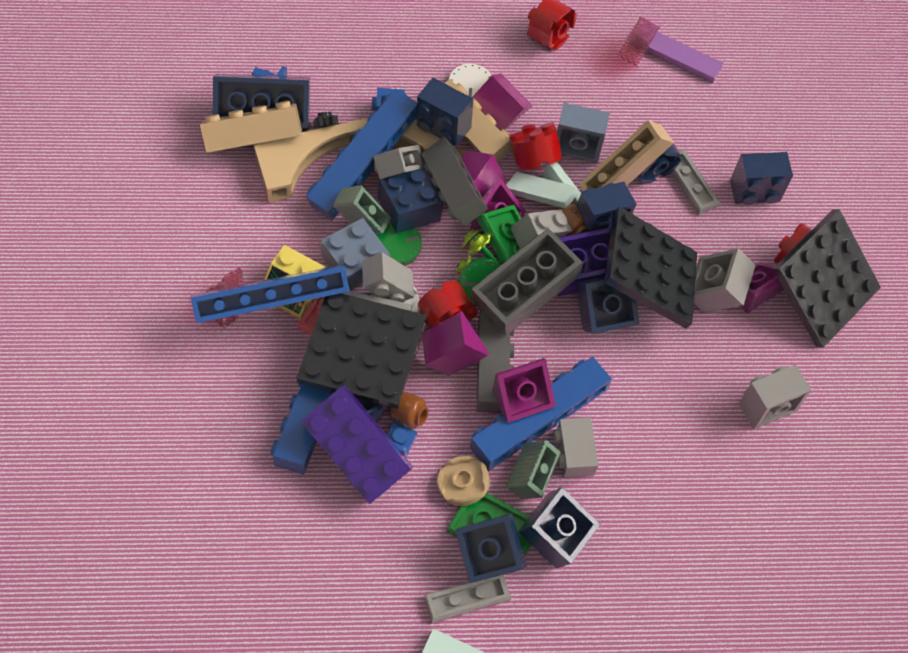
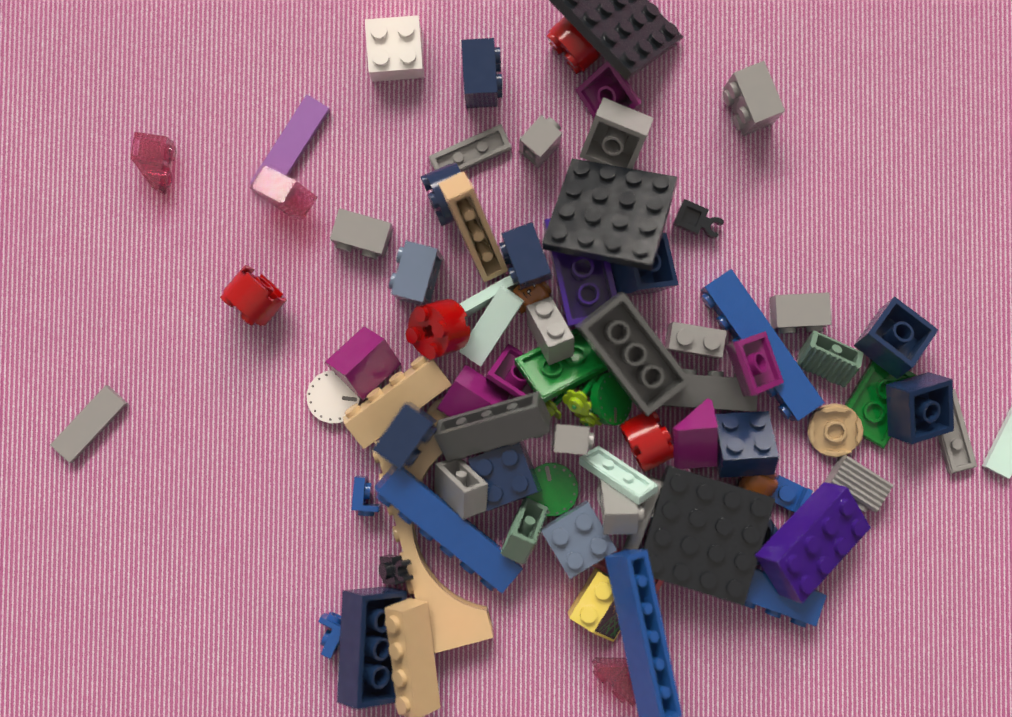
camera: 85 degrees left, 25 degrees up
(411, 501) = (865, 486): none -> light grey brick
(414, 282) = (618, 475): none -> light aqua tile
(445, 247) = (572, 439): none -> light grey brick
(446, 389) = (746, 444): none -> dark blue brick
(543, 345) = (695, 340): none -> light grey brick
(612, 97) = (361, 233): none -> light grey brick
(654, 356) = (693, 218): none -> black plate
(708, 223) = (540, 140): none -> light grey brick
(772, 121) = (394, 48): none -> white brick

